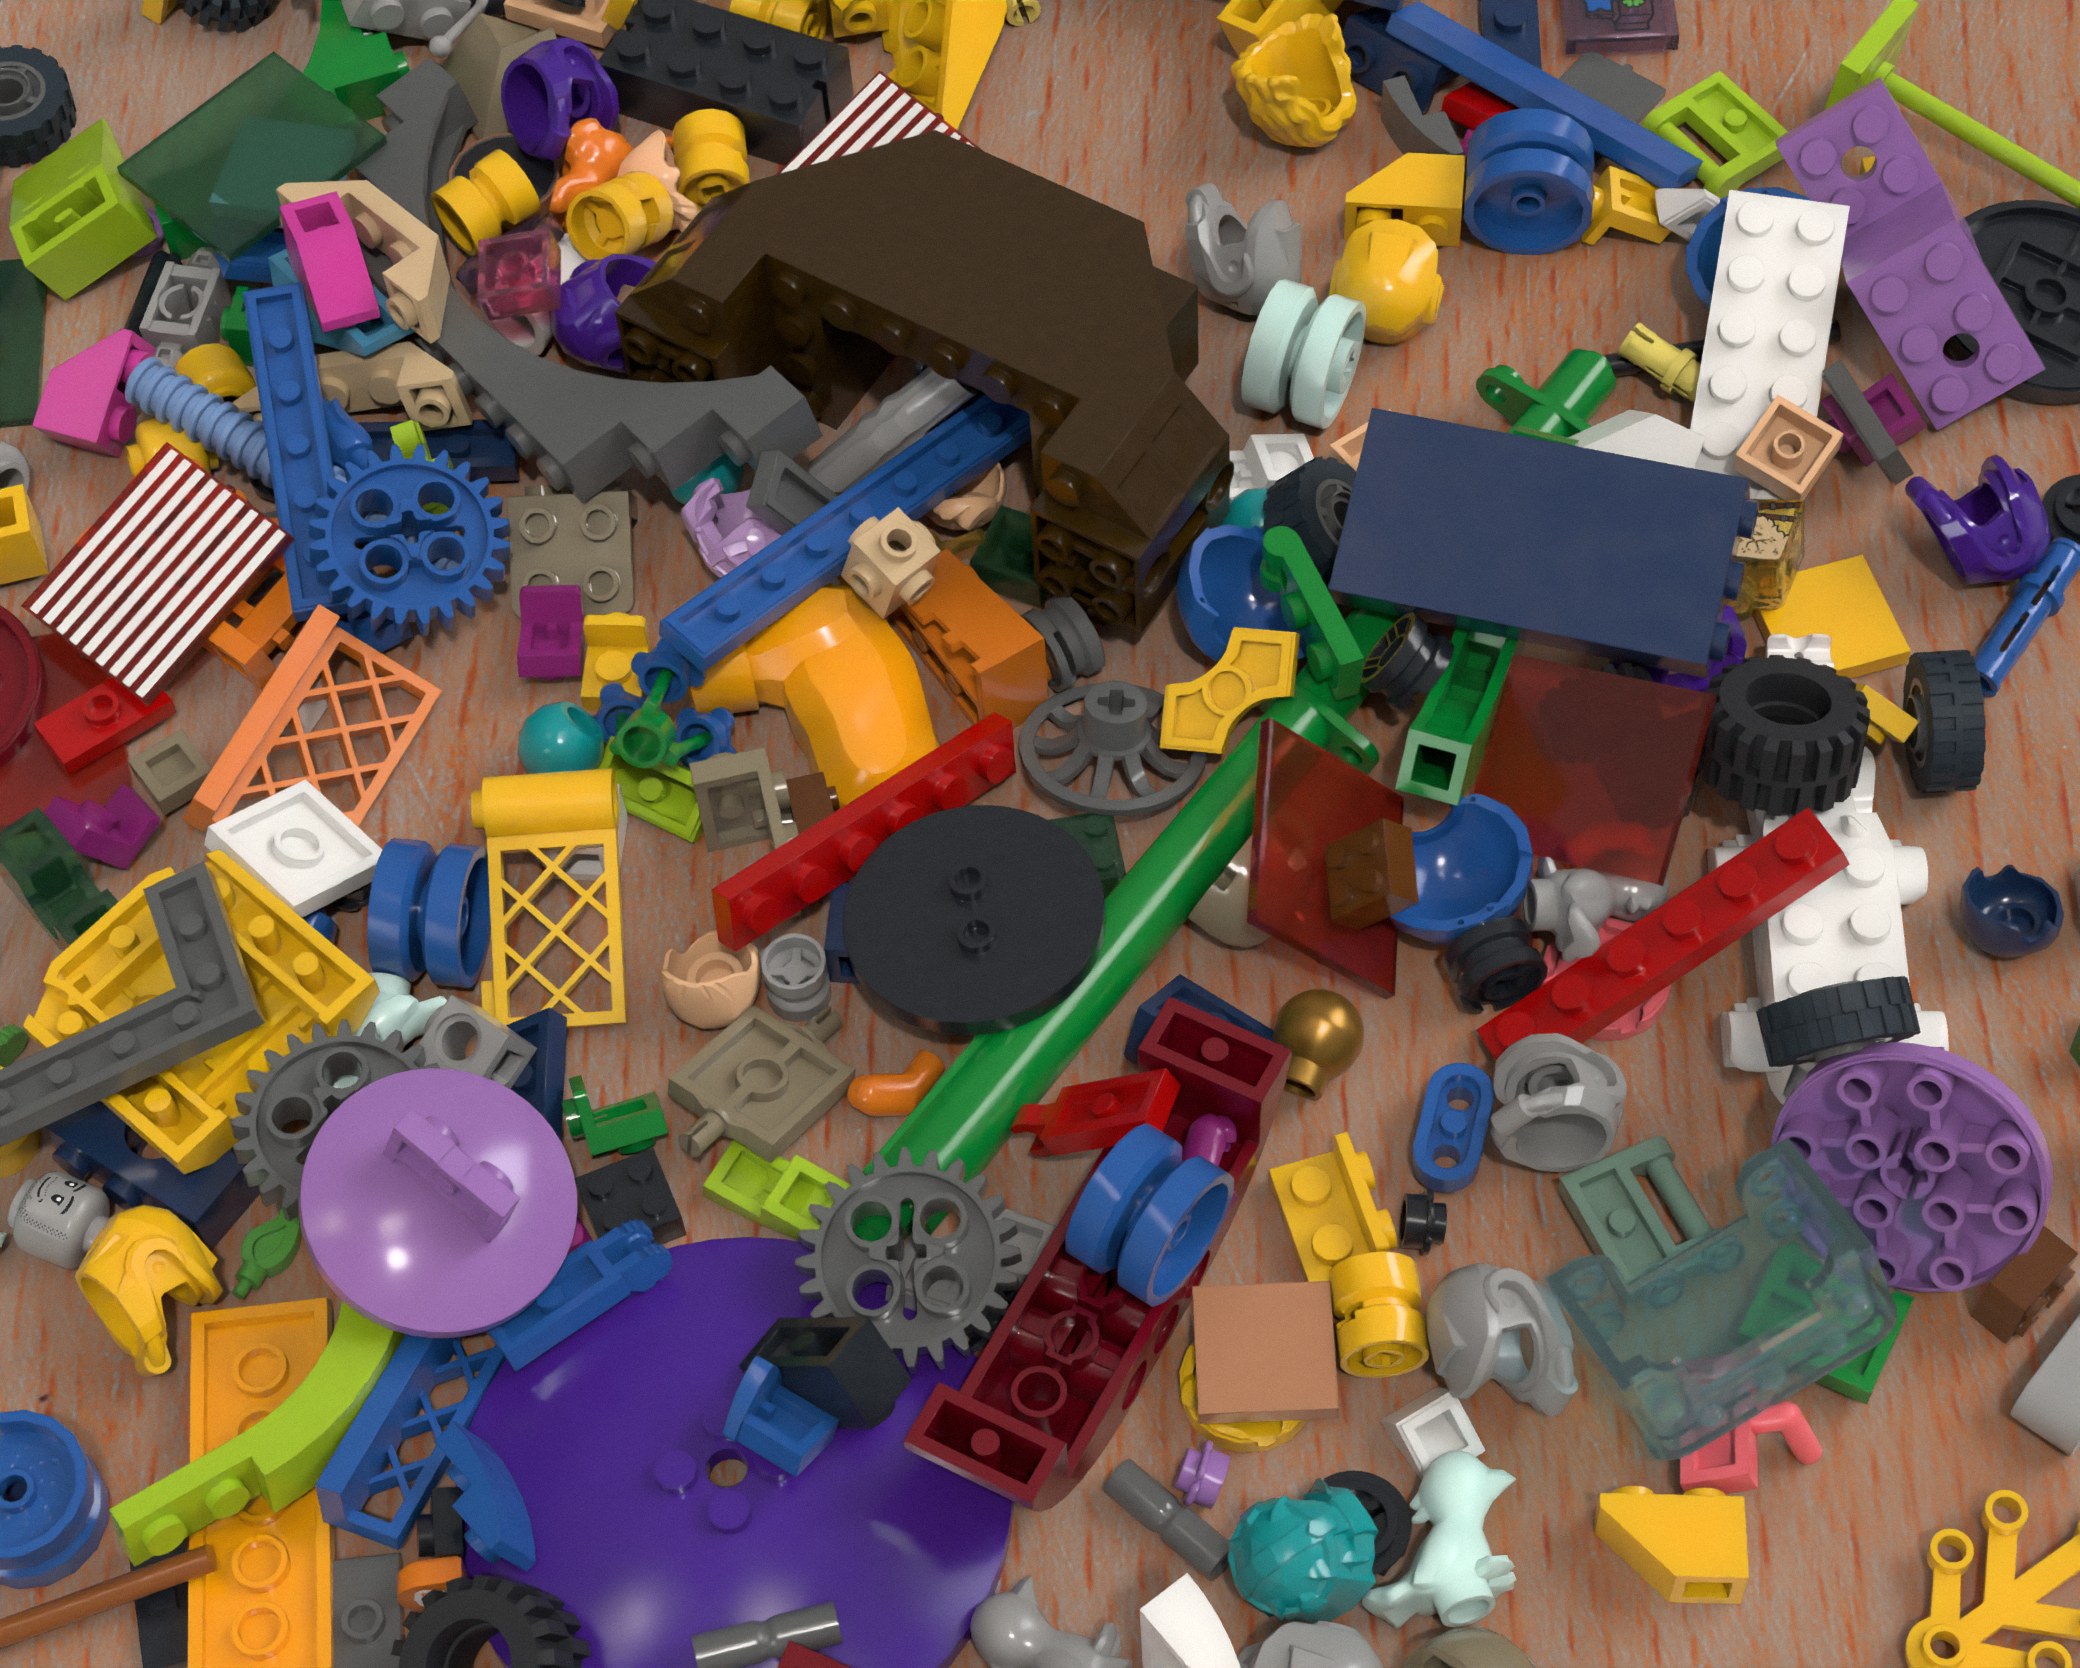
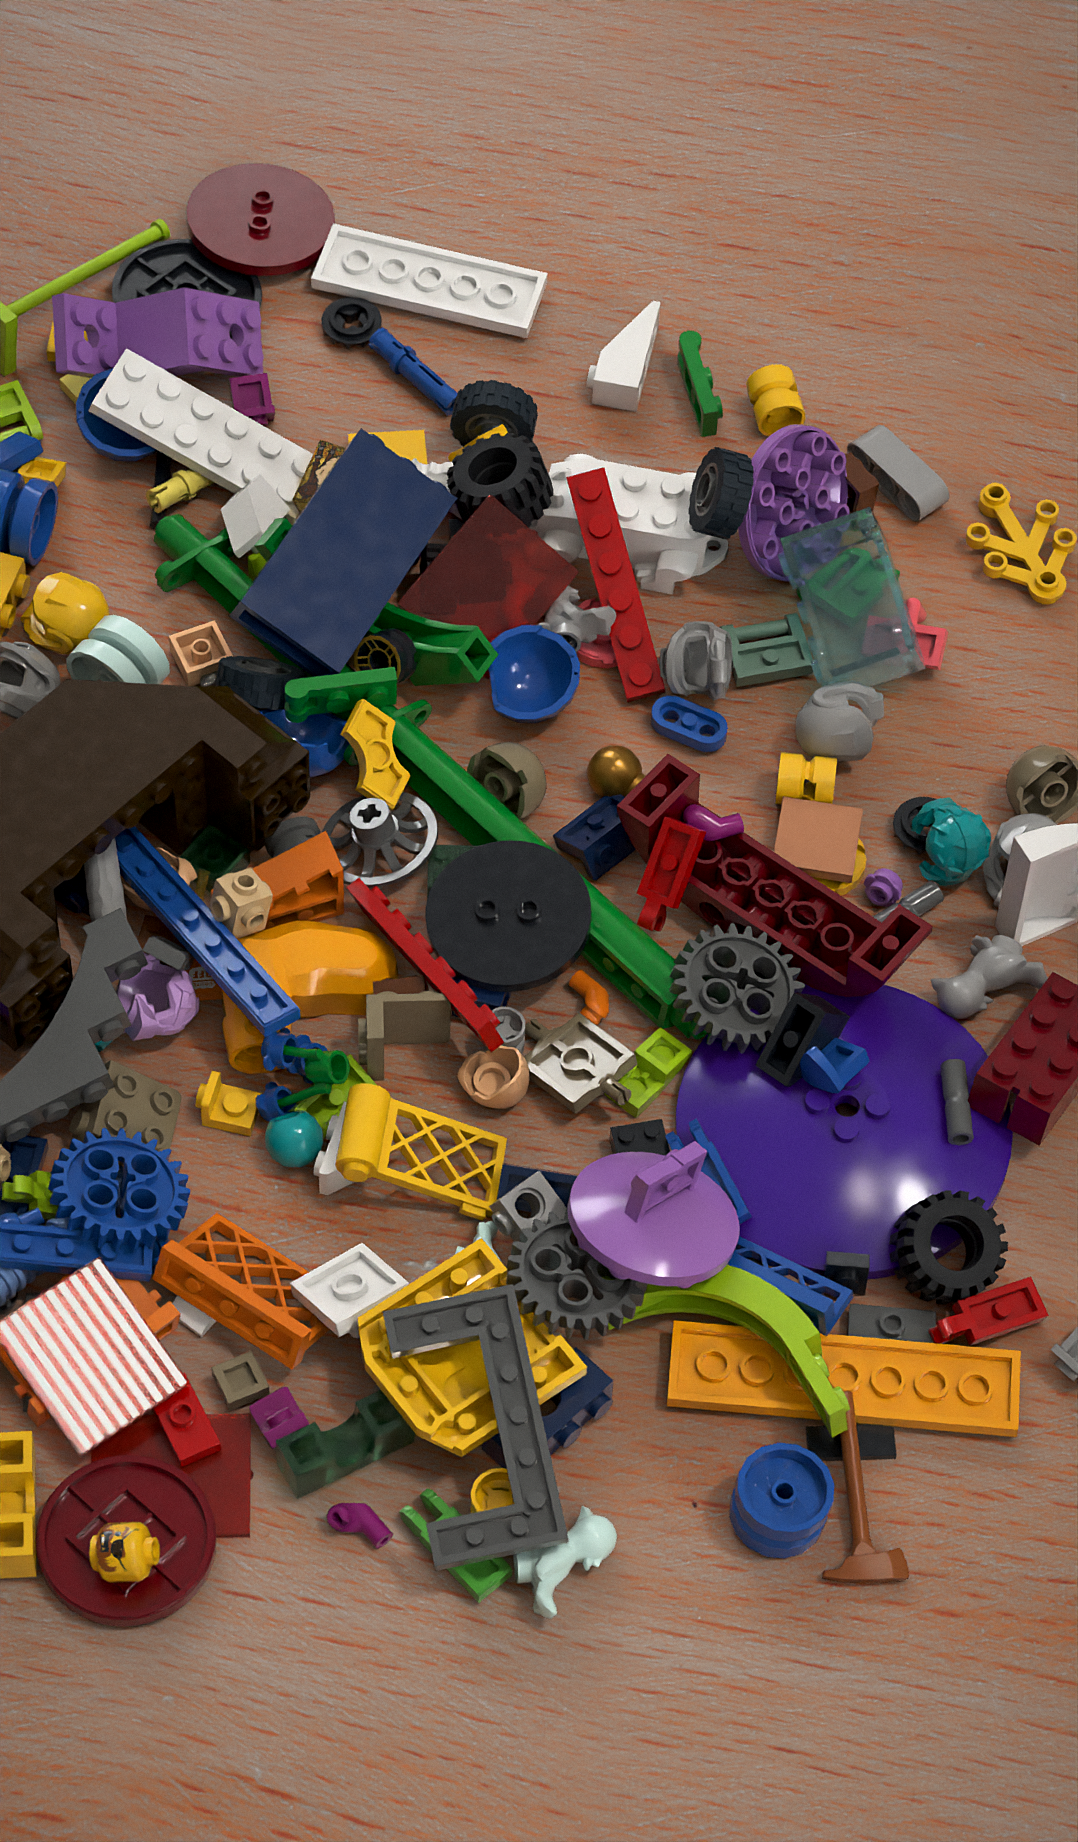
camera: 85 degrees left, 0 degrees up
(58, 1218) = (583, 1468): light grey head -> none
(130, 1269) = (639, 1404): yellow helmet -> none
(267, 1252) = (621, 1360): bright green piece -> none
(425, 1575) = (877, 1281): orange tile -> none
(430, 912) = (416, 1218): blue wheel -> none
(489, 1499) = (852, 1230): blue slope -> none
(551, 632) = (198, 1138): magenta bracket -> none
(619, 1126) = (583, 1144): green bracket -> none
(1149, 1214) = (759, 842): blue wheel -> none
(1300, 807) = (506, 734): clear red piece -> none
(1331, 1209) = (738, 789): yellow bracket -> none
(1371, 874) = (533, 707): reddish brown piece -> none
(1422, 1221) = (745, 753): black plate -> none
(1431, 1428) = (873, 779): white slope -> none
(1454, 1562) = (959, 778): light aqua animal -> none
(1495, 964) = (595, 675): black wheel -> none
(1679, 1544) = (970, 676): yellow slope -> none
(1683, 208) = (62, 447): white slope -> none
(1787, 450) = (284, 436): light nougat piece -> none
(1866, 423) = (279, 396): dark grey tile -> none
(1992, 530) = (356, 363): dark purple helmet -> none
(2010, 912) = (618, 430): dark blue hair -> none

